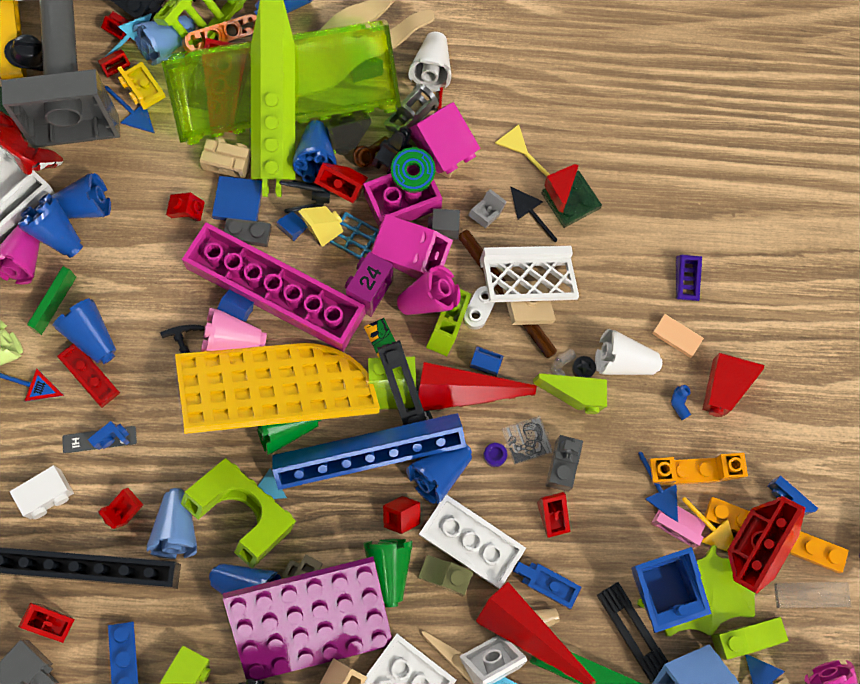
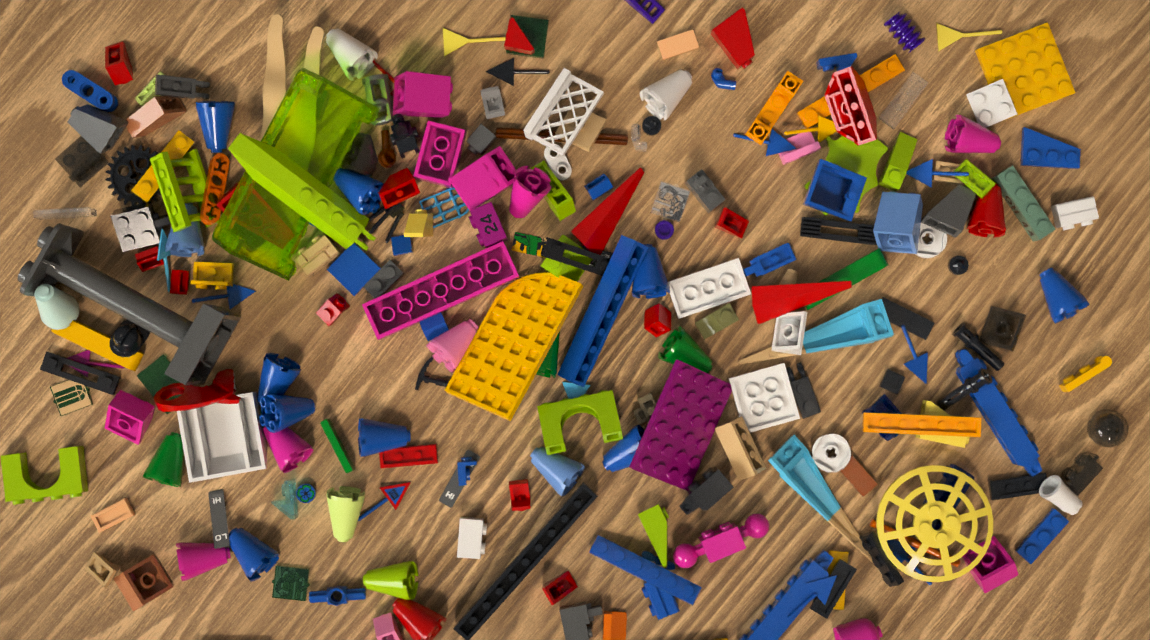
camera: 50 degrees left, 15 degrees up
(415, 157) = (419, 135): green tile -> none
(578, 392) = (666, 144): lime slope -> none

